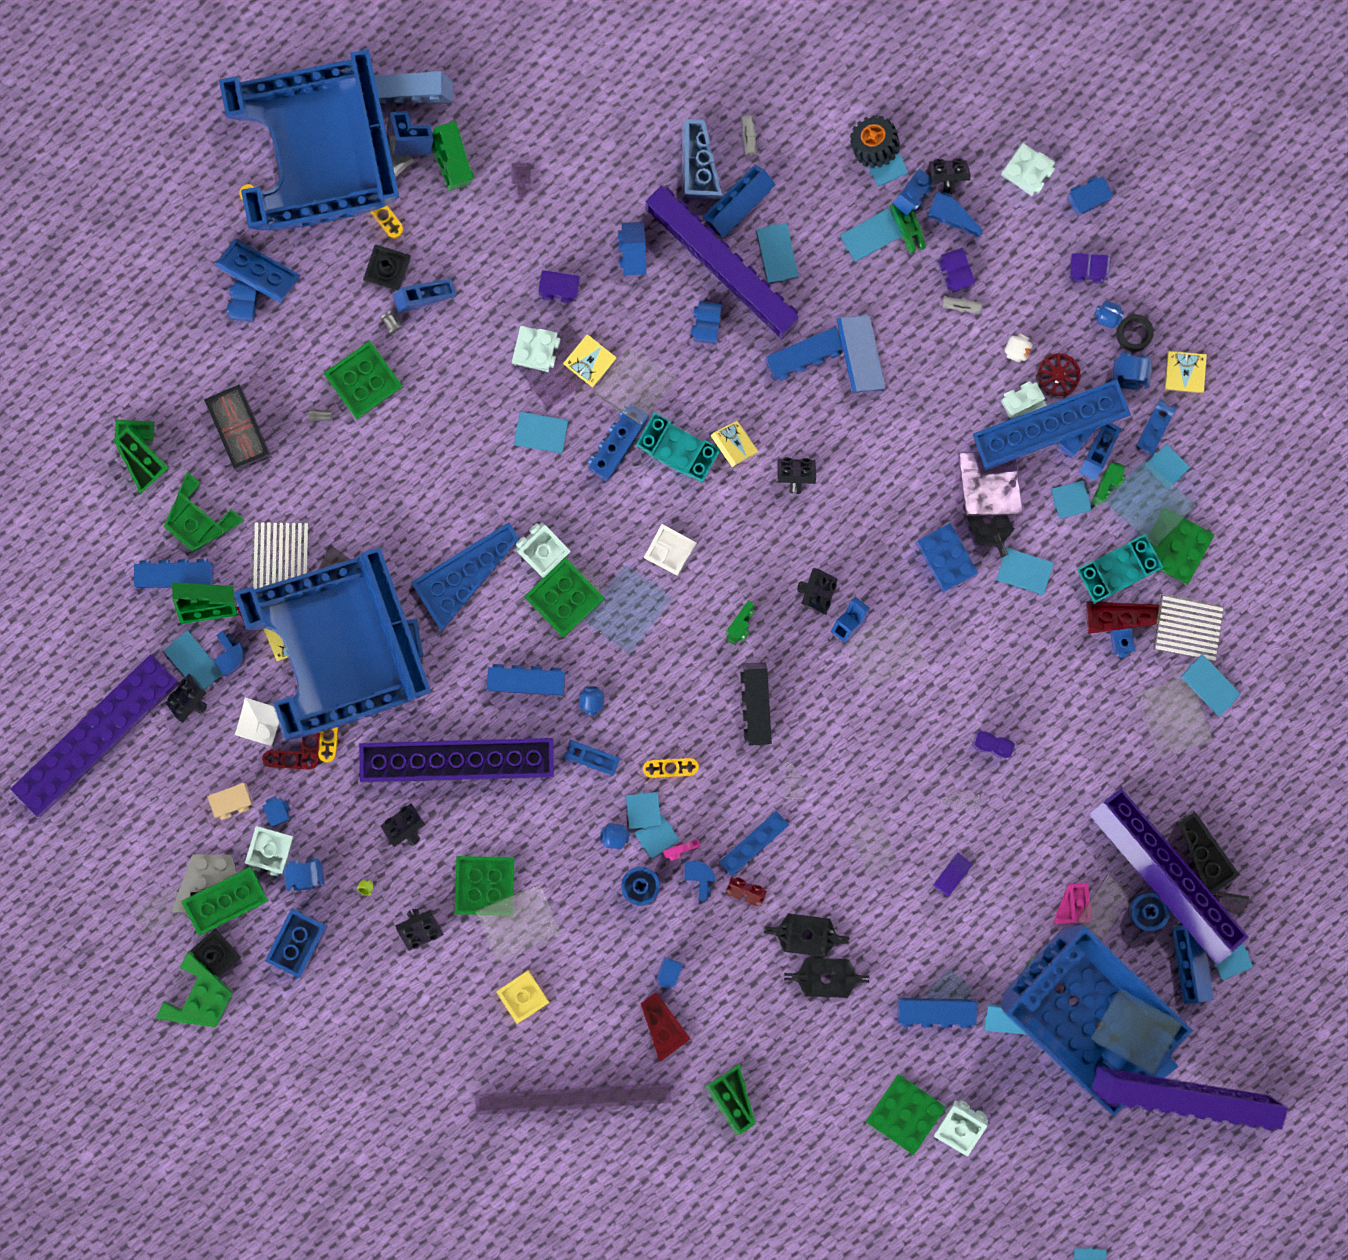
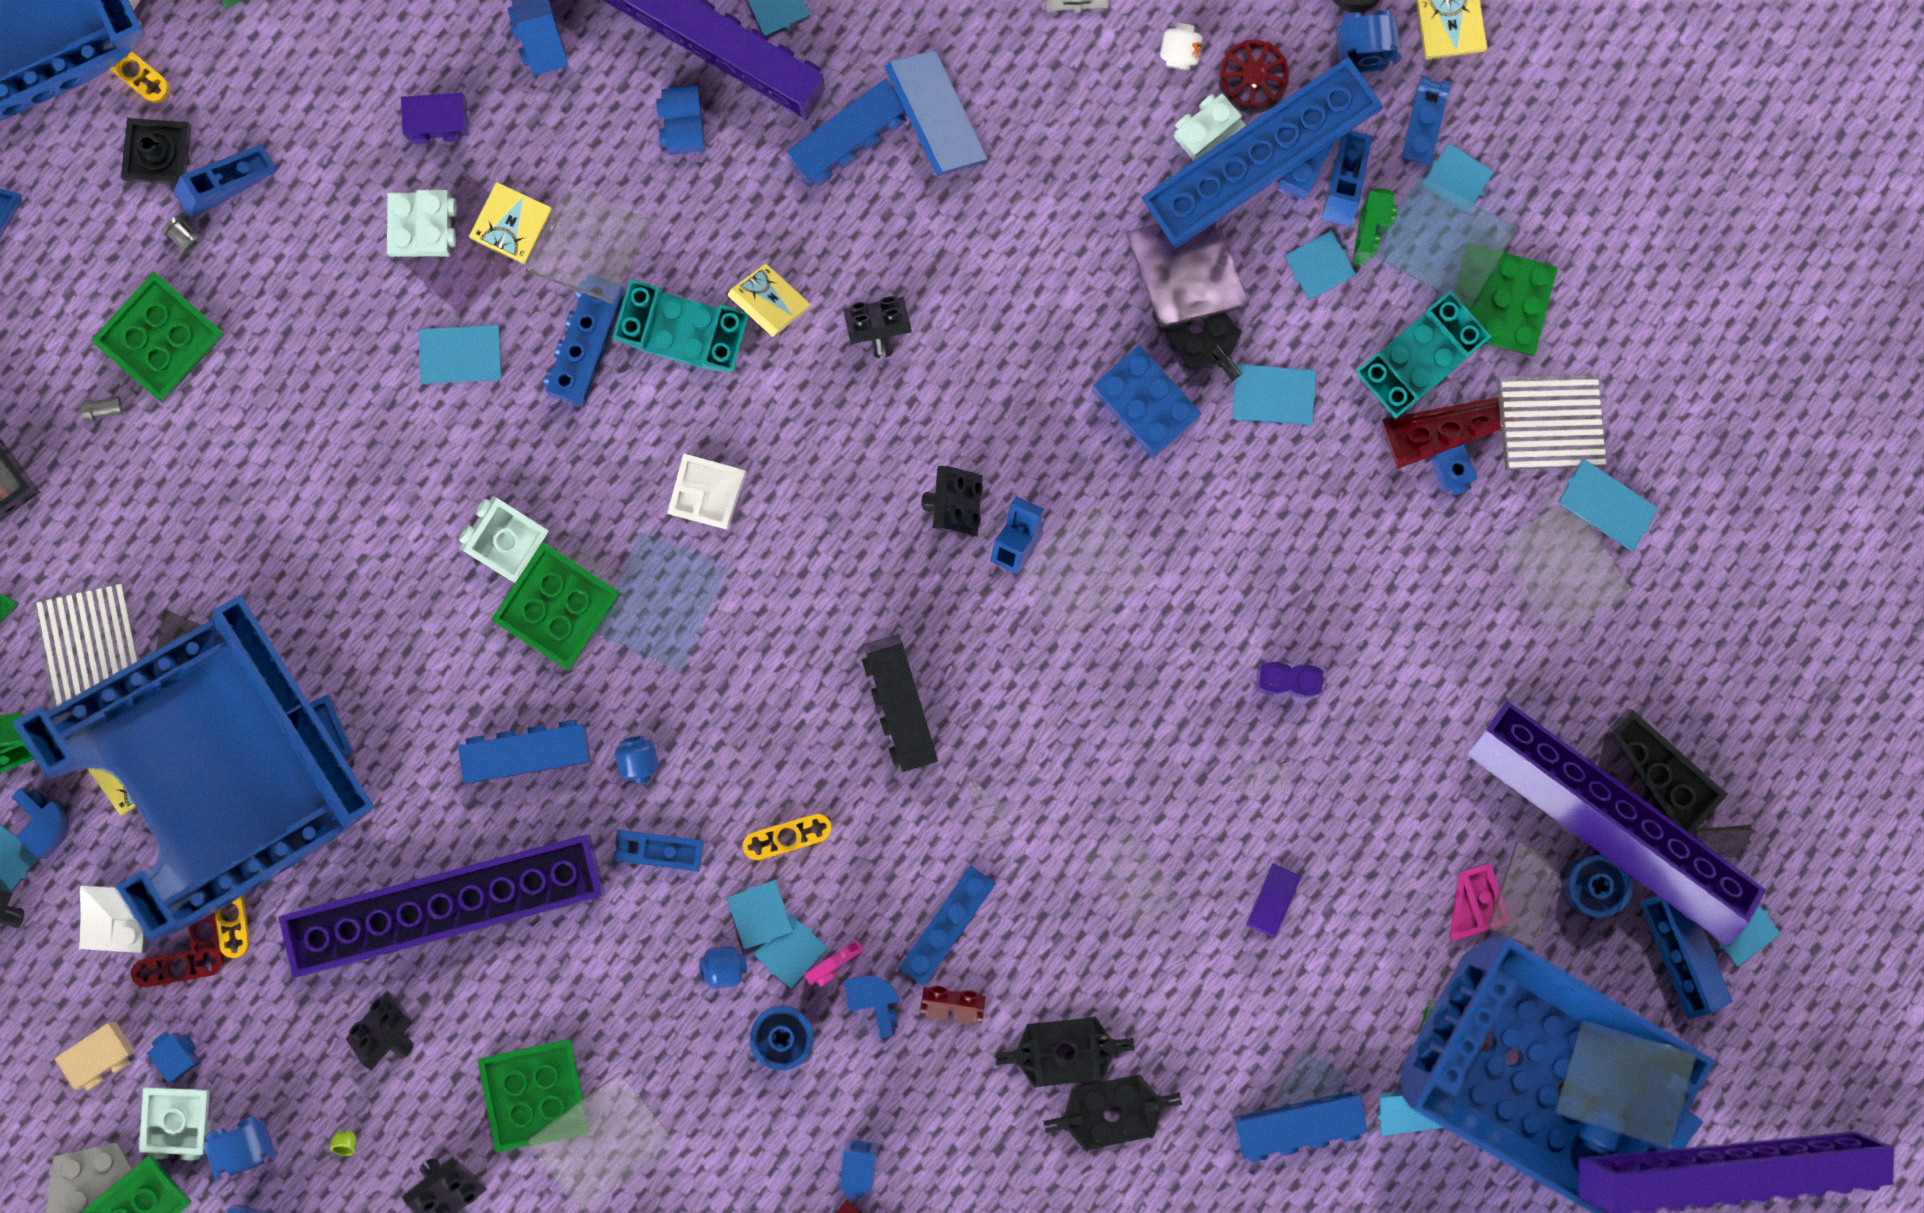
camera: 15 degrees left, 0 degrees up
(456, 580) = (376, 620): blue wing -> none
(739, 628) = (844, 590): green plate -> none

